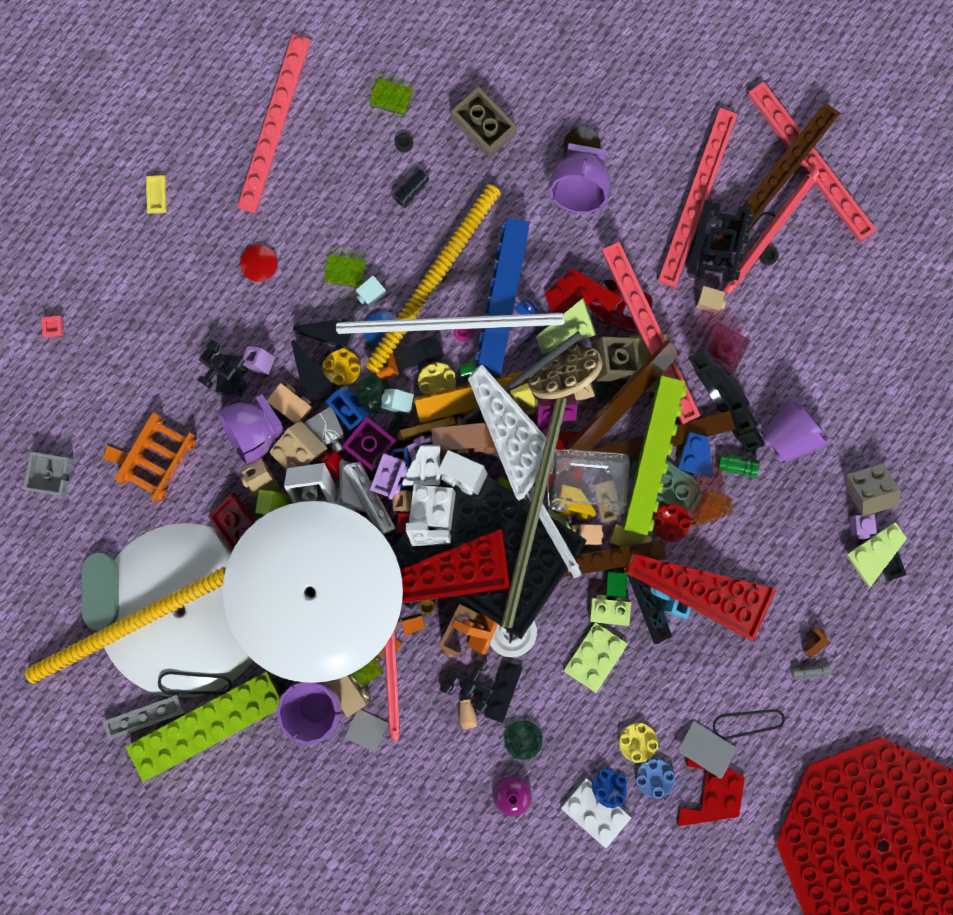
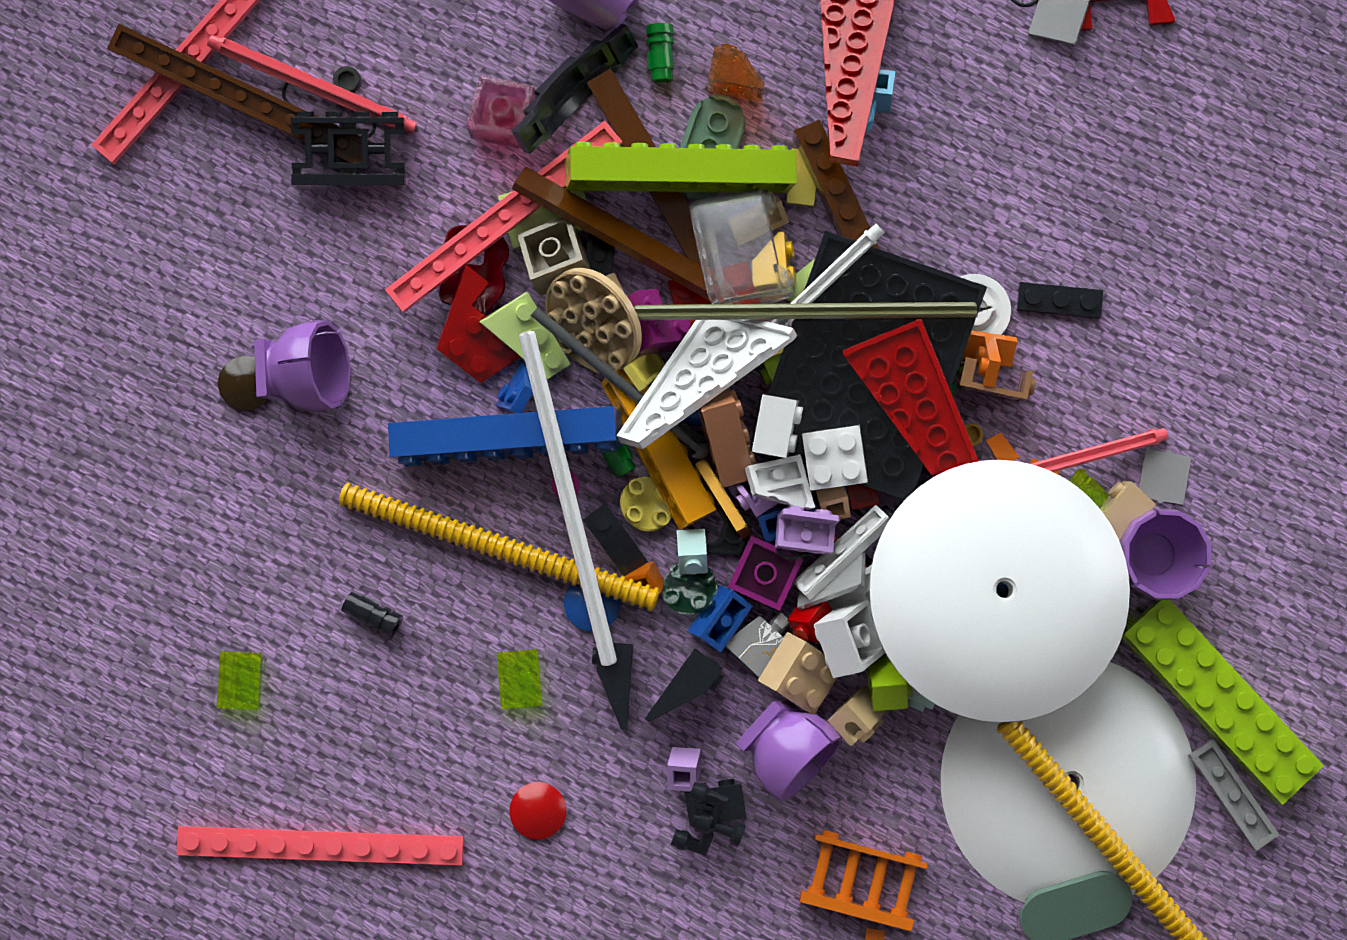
camera: 105 degrees left, 0 degrees up
(194, 692) = (1190, 770): black piece -> none
(231, 520) = (929, 739): dark red tile -> none
(290, 404) = (735, 705): light nougat brick -> none
(341, 367) = (662, 646): yellow dish -> none
(370, 292) = (542, 633): light aqua brick -> none
(404, 142) = (304, 644): pearl dark grey tile -> none
(421, 535) = (877, 462): white plate -> none
(467, 715) = (1106, 341): light nougat cone -> none
(469, 685) = (1063, 349): black piece -> none
(483, 122) = (249, 532): dark tan brick -> none
(514, 787) = (1197, 263): magenta cylinder -> none
(523, 740) = (1118, 256): clear green dish -> none
(591, 533) = (810, 234): light nougat brick -> none
(593, 817) = (1188, 135): white plate -> none
(595, 657) = (978, 186): yellowish green plate -> none
(609, 788) = (1151, 123): blue dish -> none
(610, 611) = (910, 180): yellowish green brick -> none
(616, 583) = (870, 181): green brick -> none
(638, 742) = (1078, 100): light yellow dish -> none
(651, 611) = (896, 124): black fence -> none
(655, 778) = (1120, 66): medium blue dish -> none
(671, 522) = (763, 124): red dish -> none
(696, 455) = (661, 113): blue wing -> none
(698, 194) = (285, 199): coral plate -> none
(711, 300) = (433, 145): tan brick -> none

